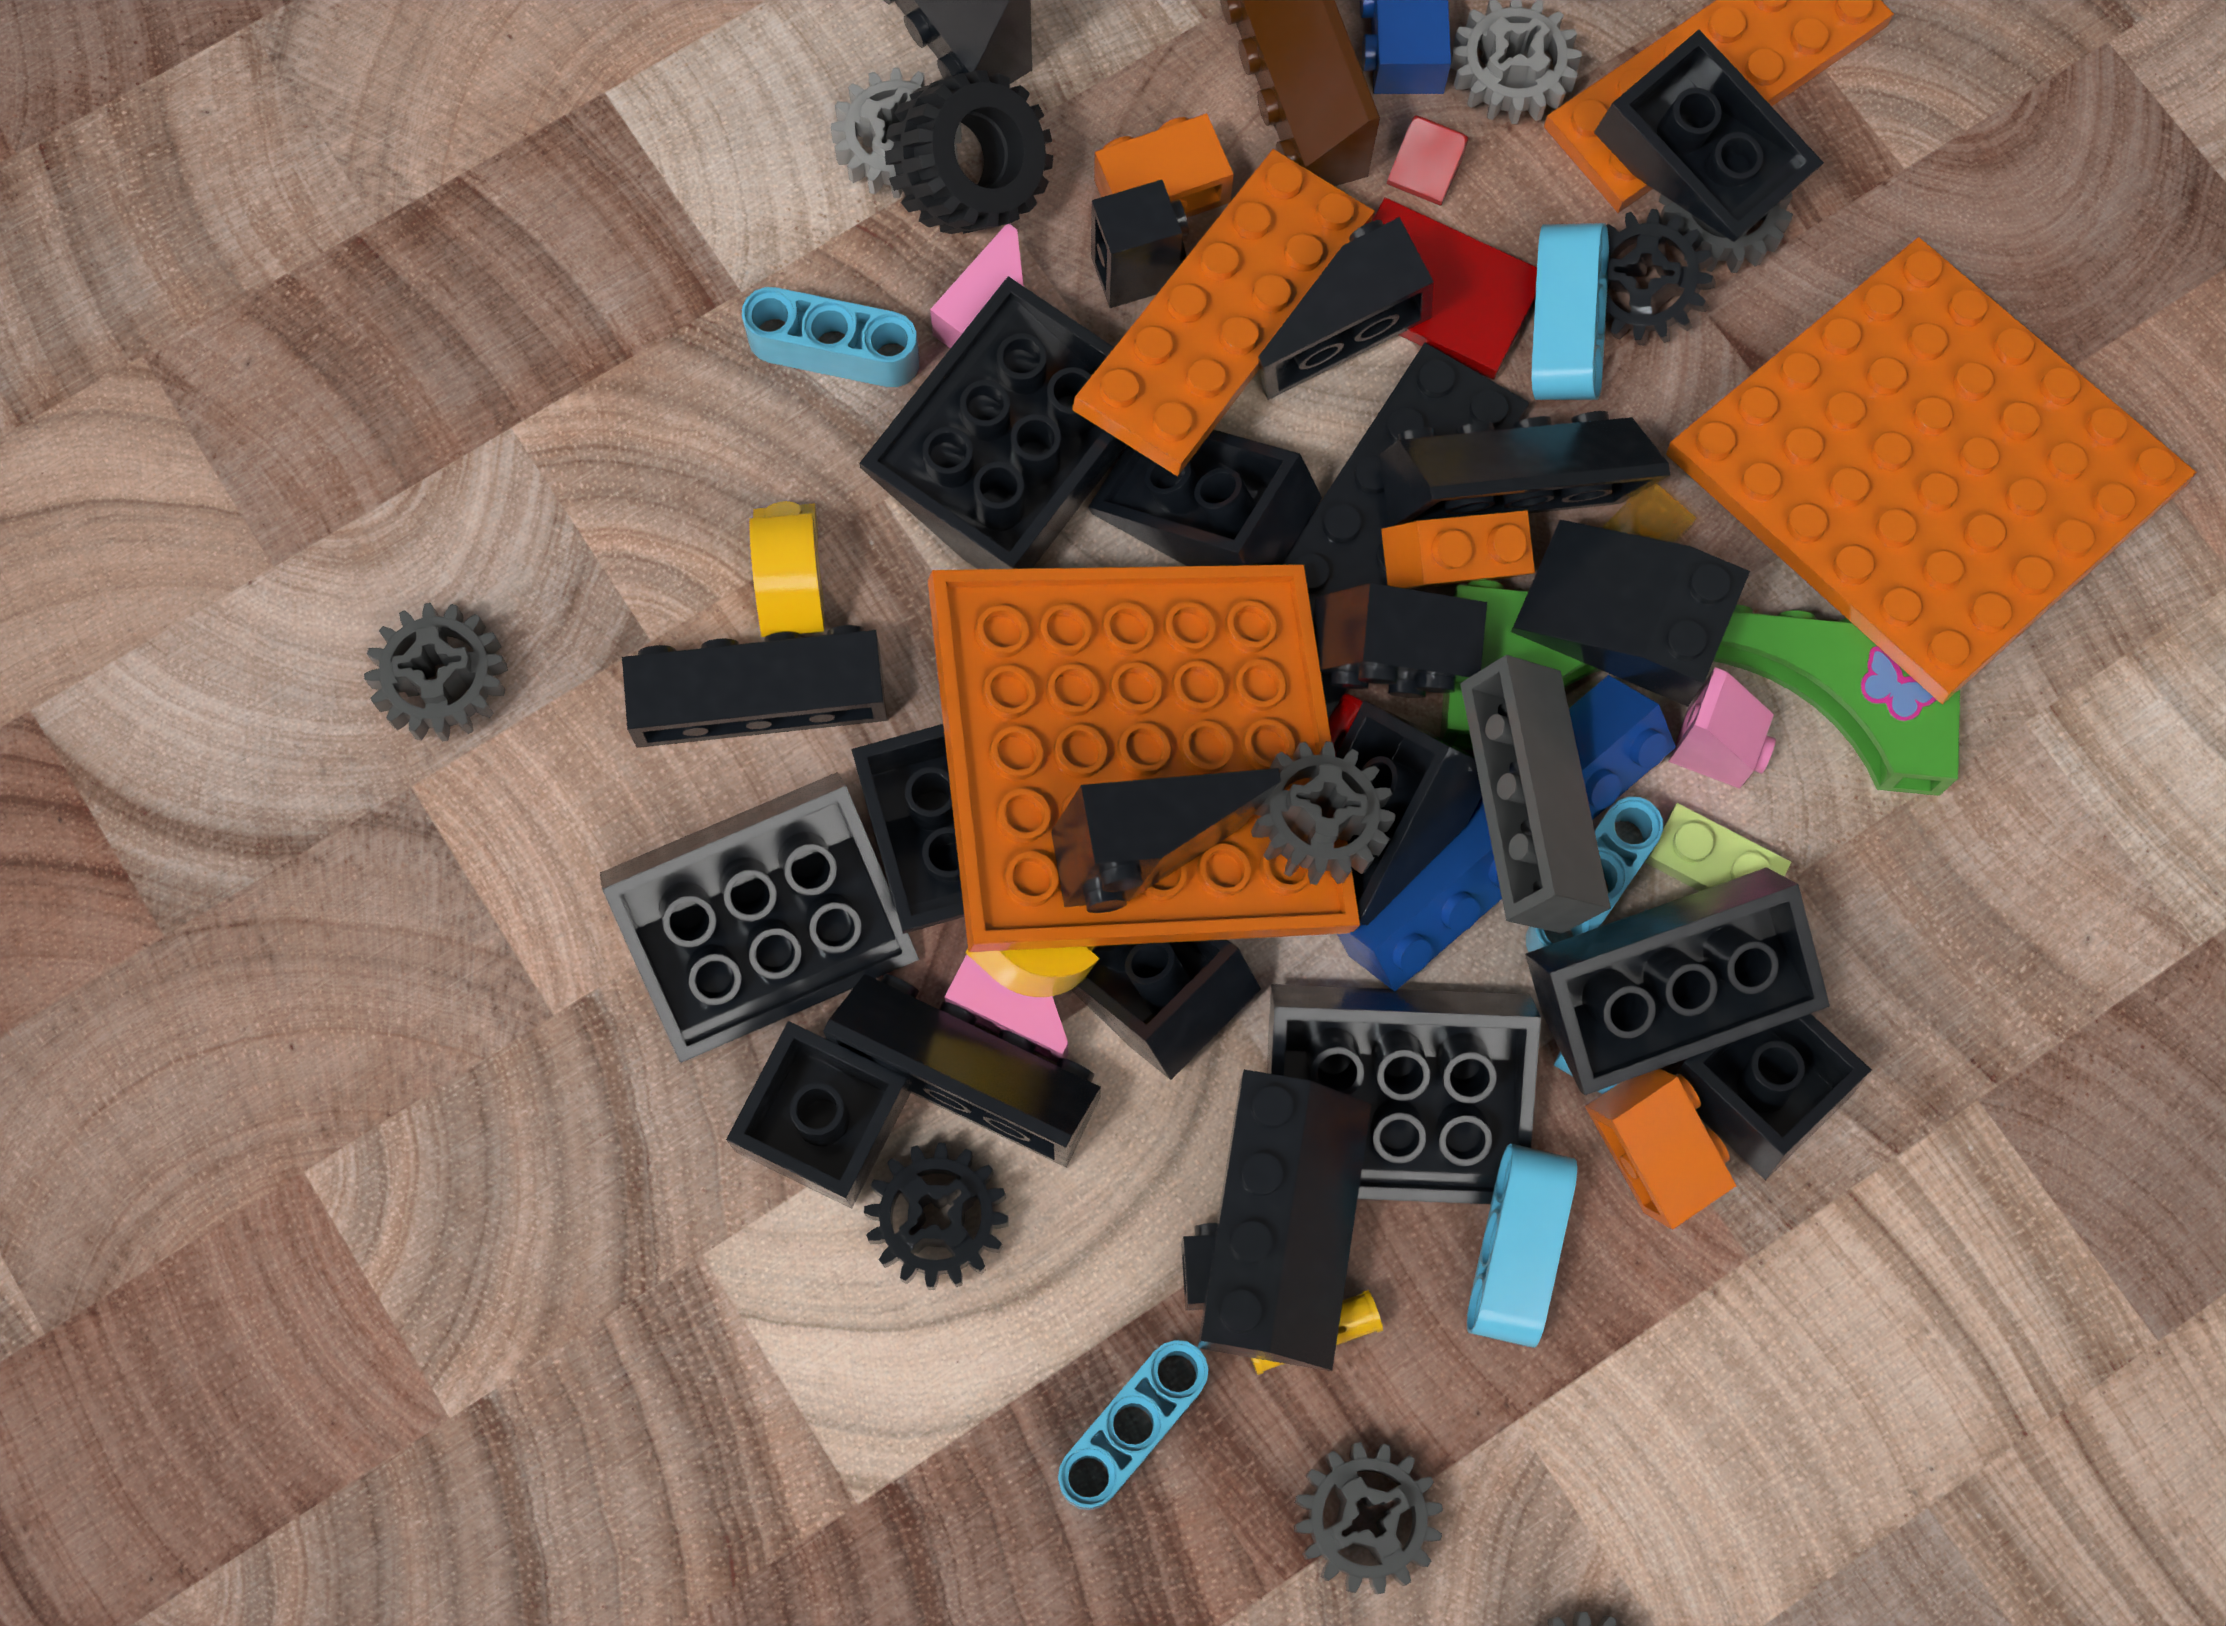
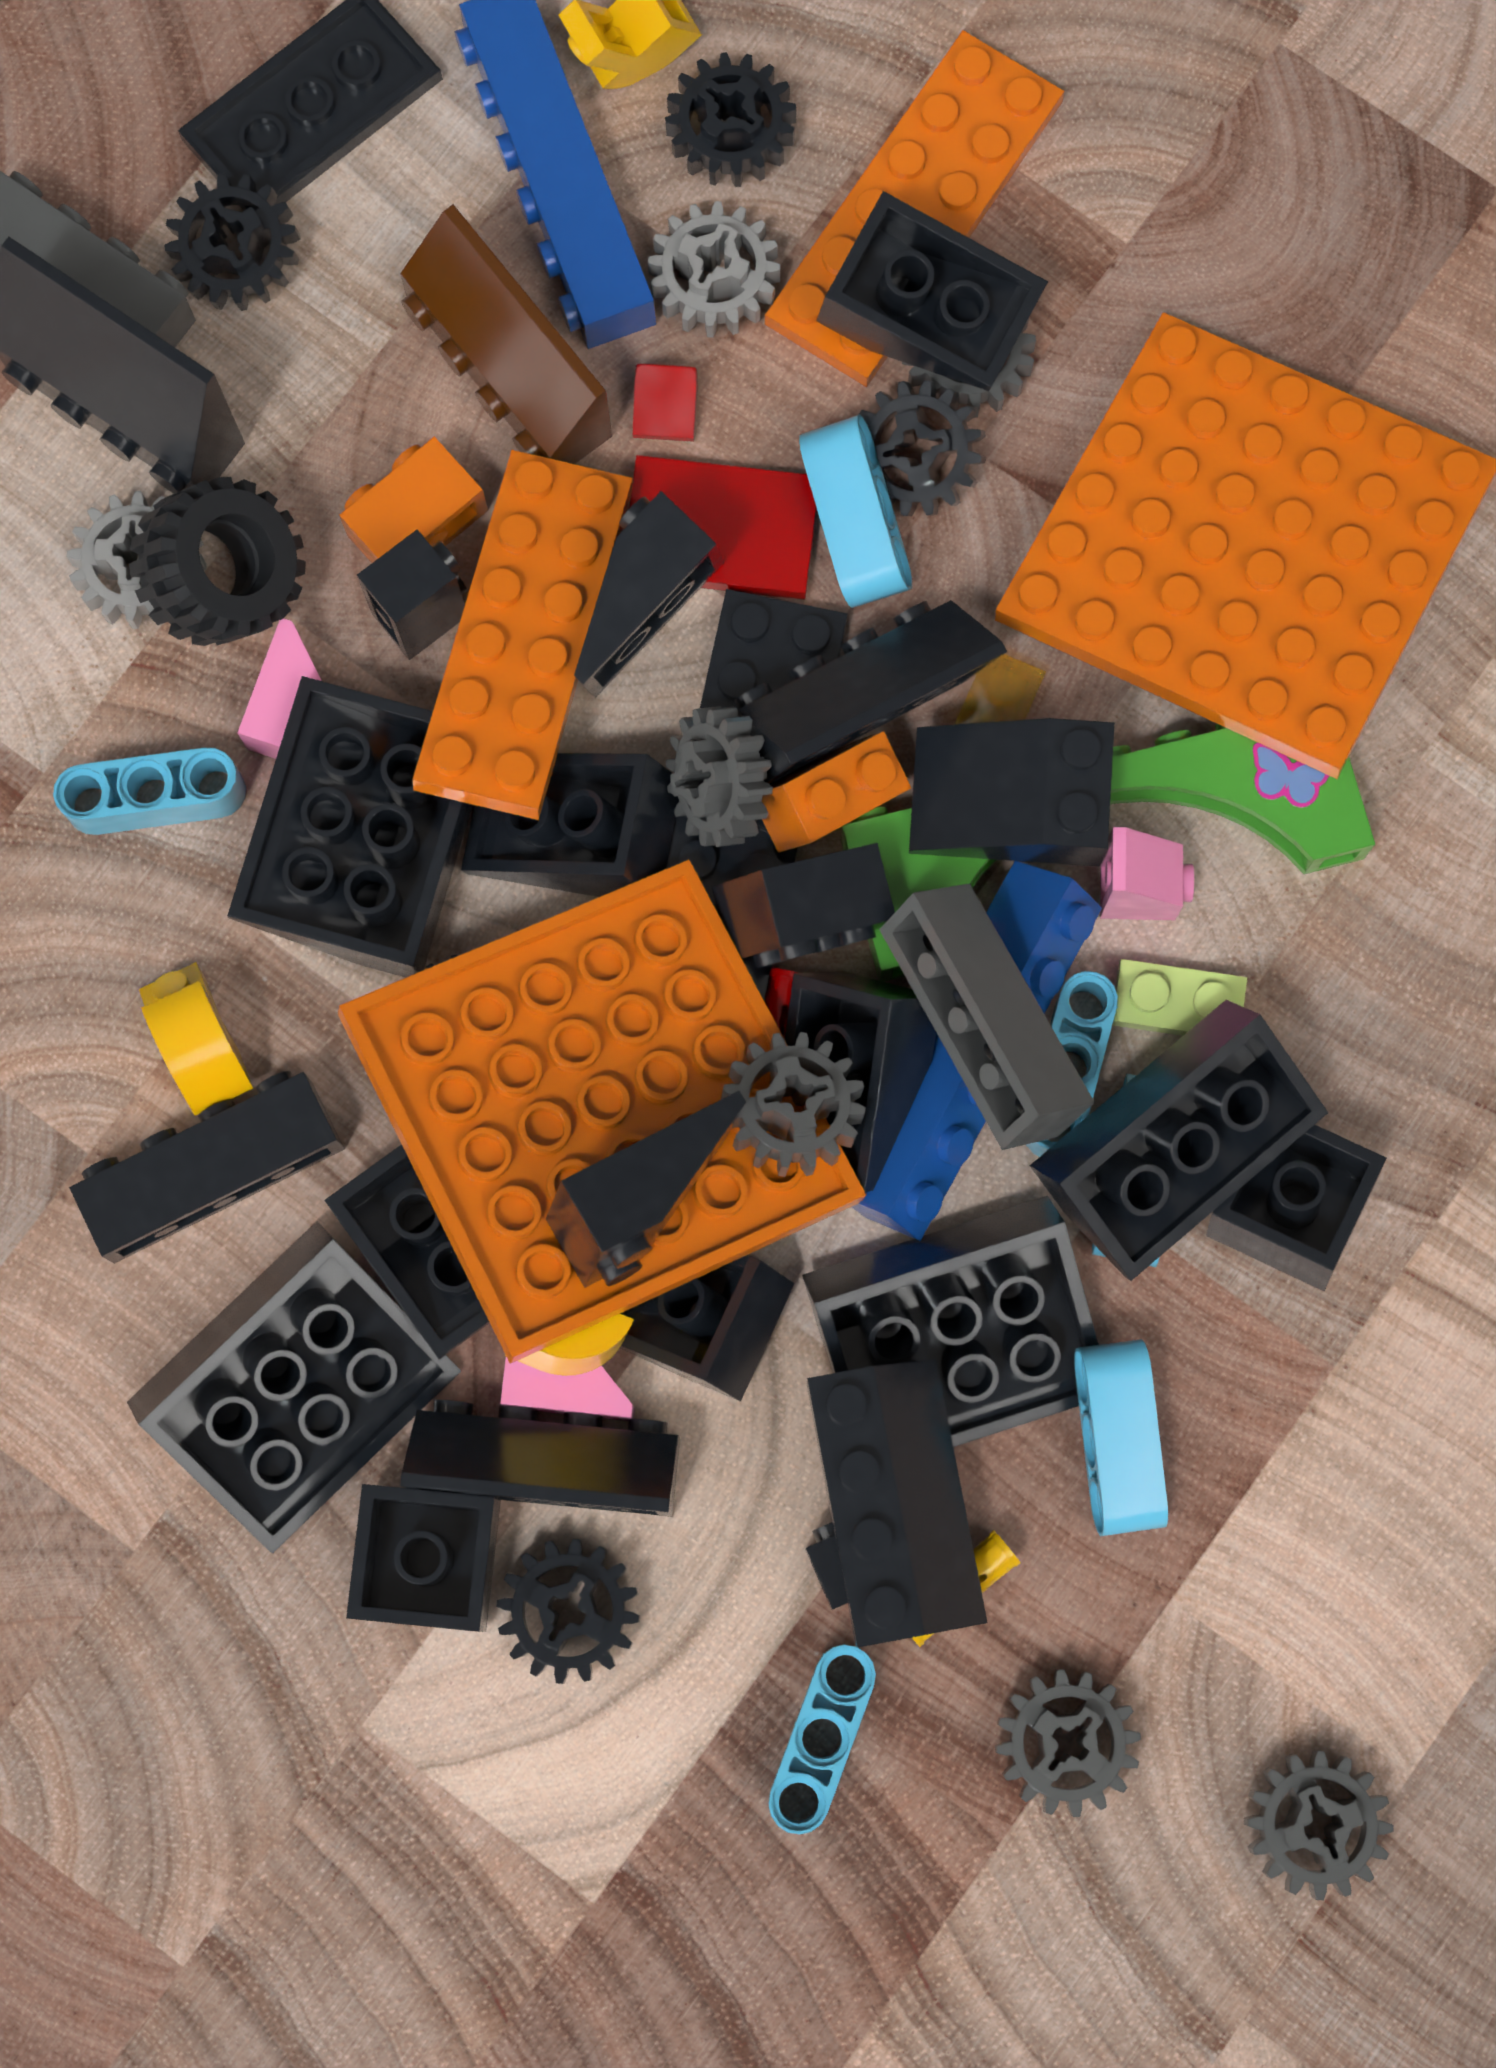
camera: 15 degrees left, 5 degrees up
(1359, 495) = (719, 776): none -> dark grey gear
(1663, 1145) = (1219, 1297): orange brick -> none

